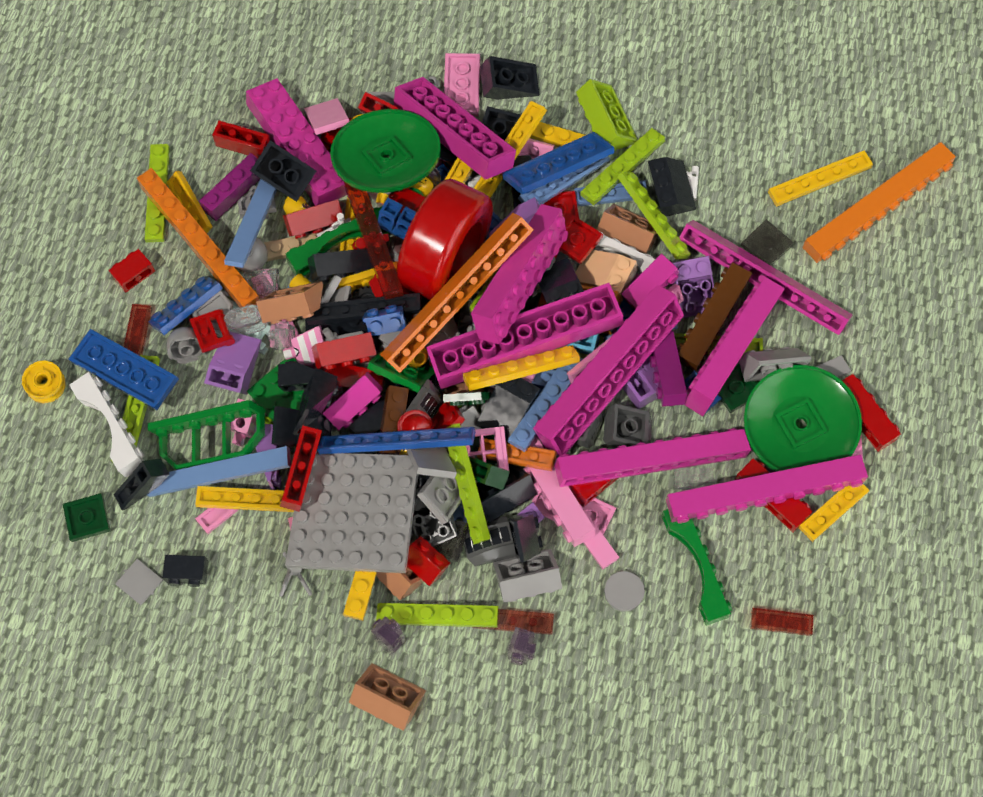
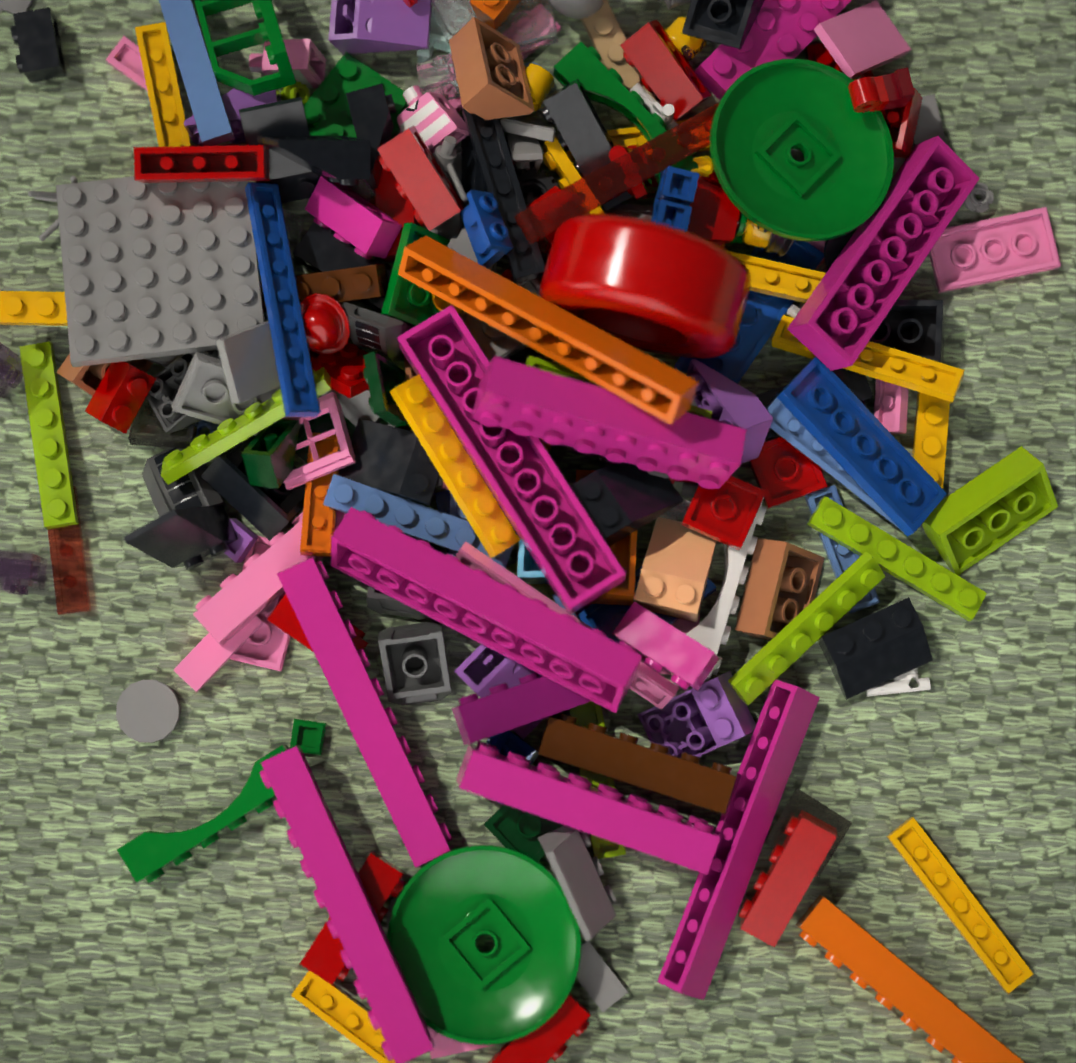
camera: 75 degrees right, 15 degrees up
(364, 104) = (882, 91): none -> leg
(508, 79) = (1020, 327): black slope -> none
(529, 577) = (133, 574): light grey slope -> none
(657, 500) = (308, 735): none -> green tile
(693, 478) = (354, 785): clear plate -> none
(782, 621) = (151, 966): clear red tile -> none
(792, 255) = (787, 878): none -> red brick

